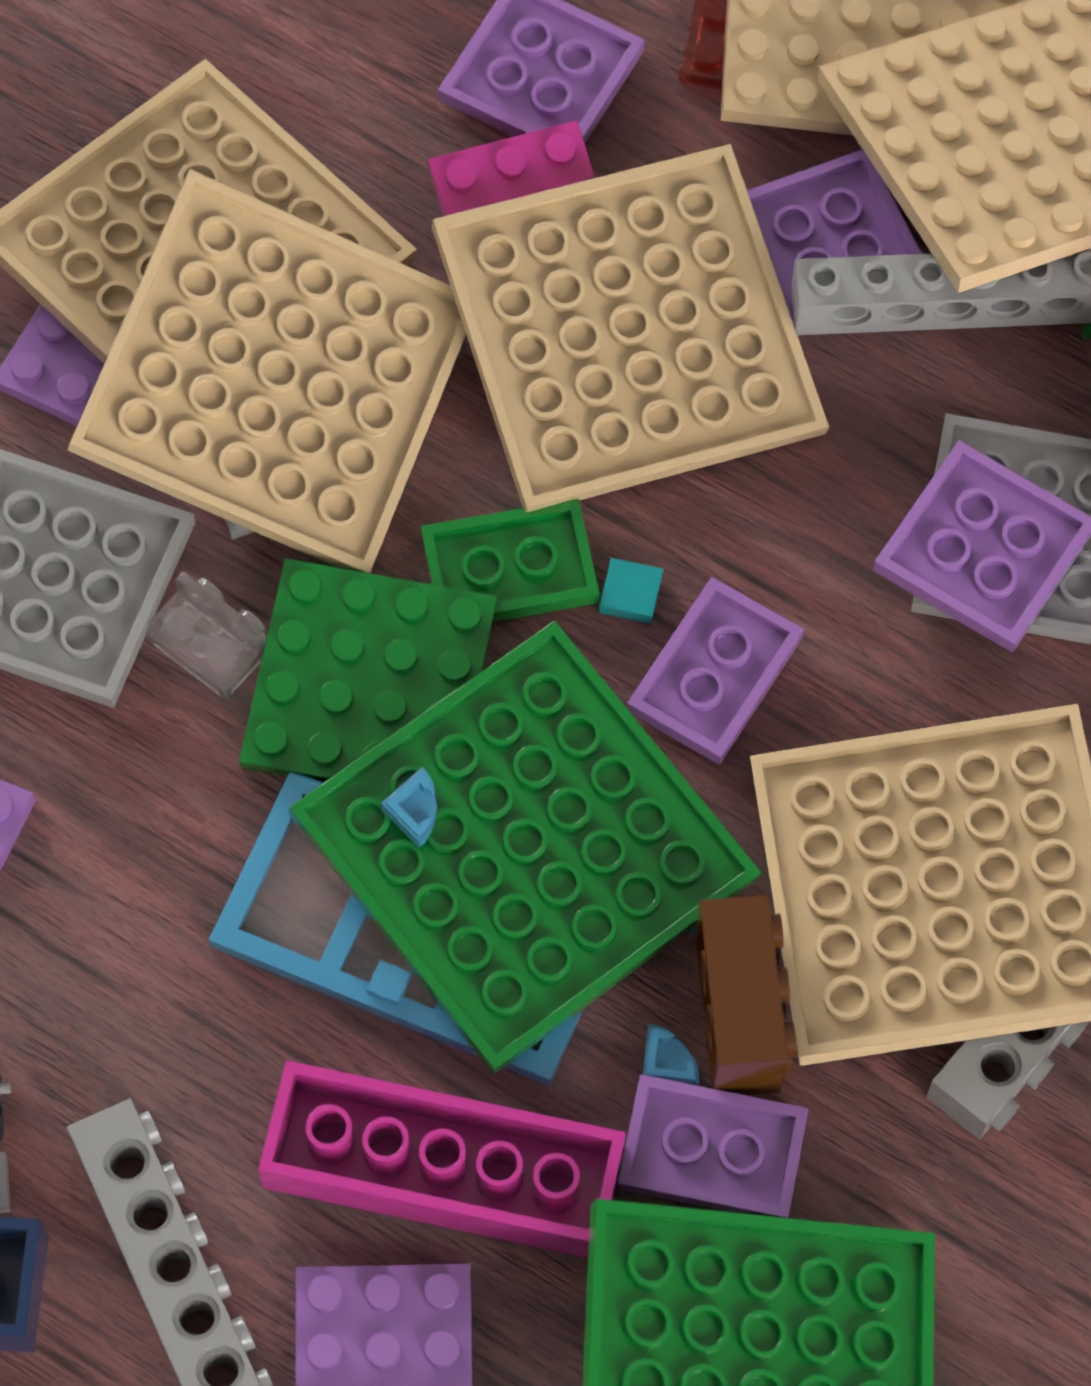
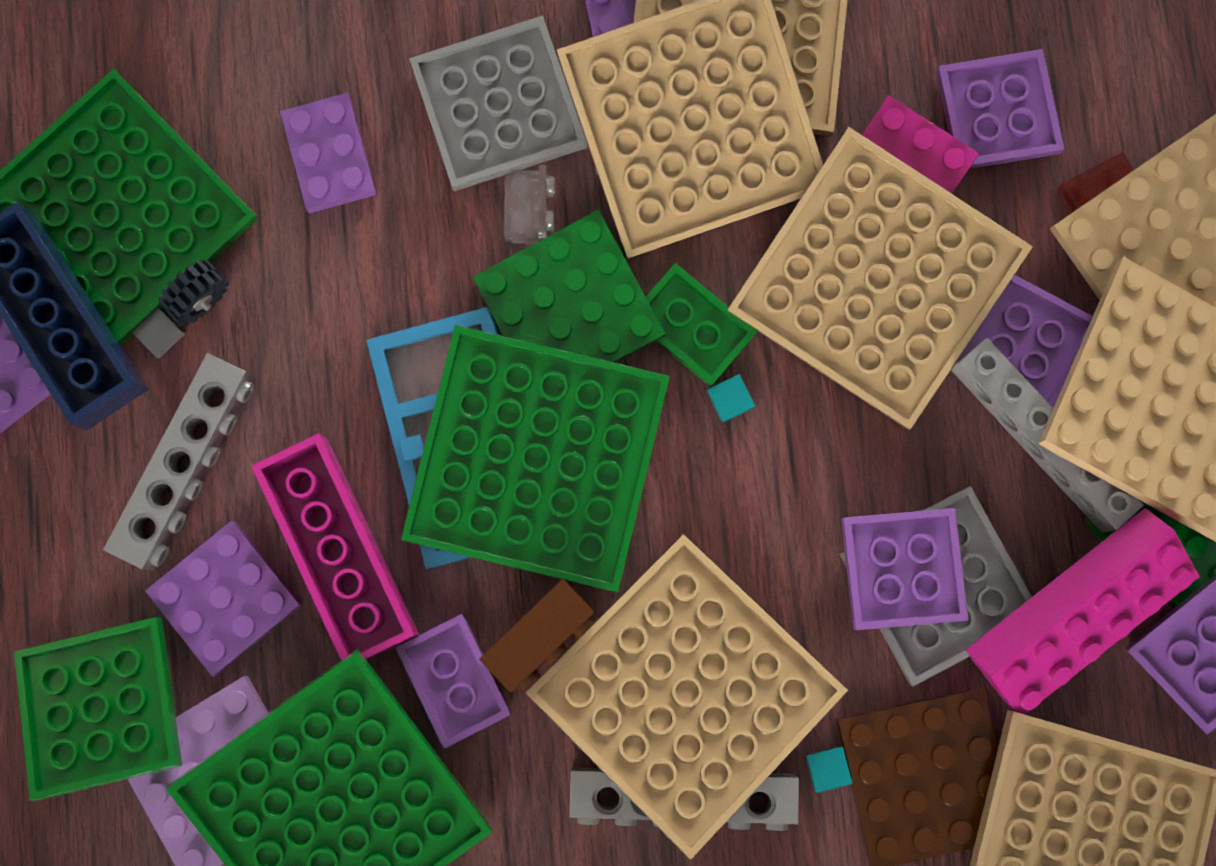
camera: 55 degrees right, 15 degrees up
(413, 807) = (504, 388): dark azure tile -> none
(668, 1057) = (486, 620): dark azure tile -> none
(715, 670) = (719, 478): medium lavender plate -> none

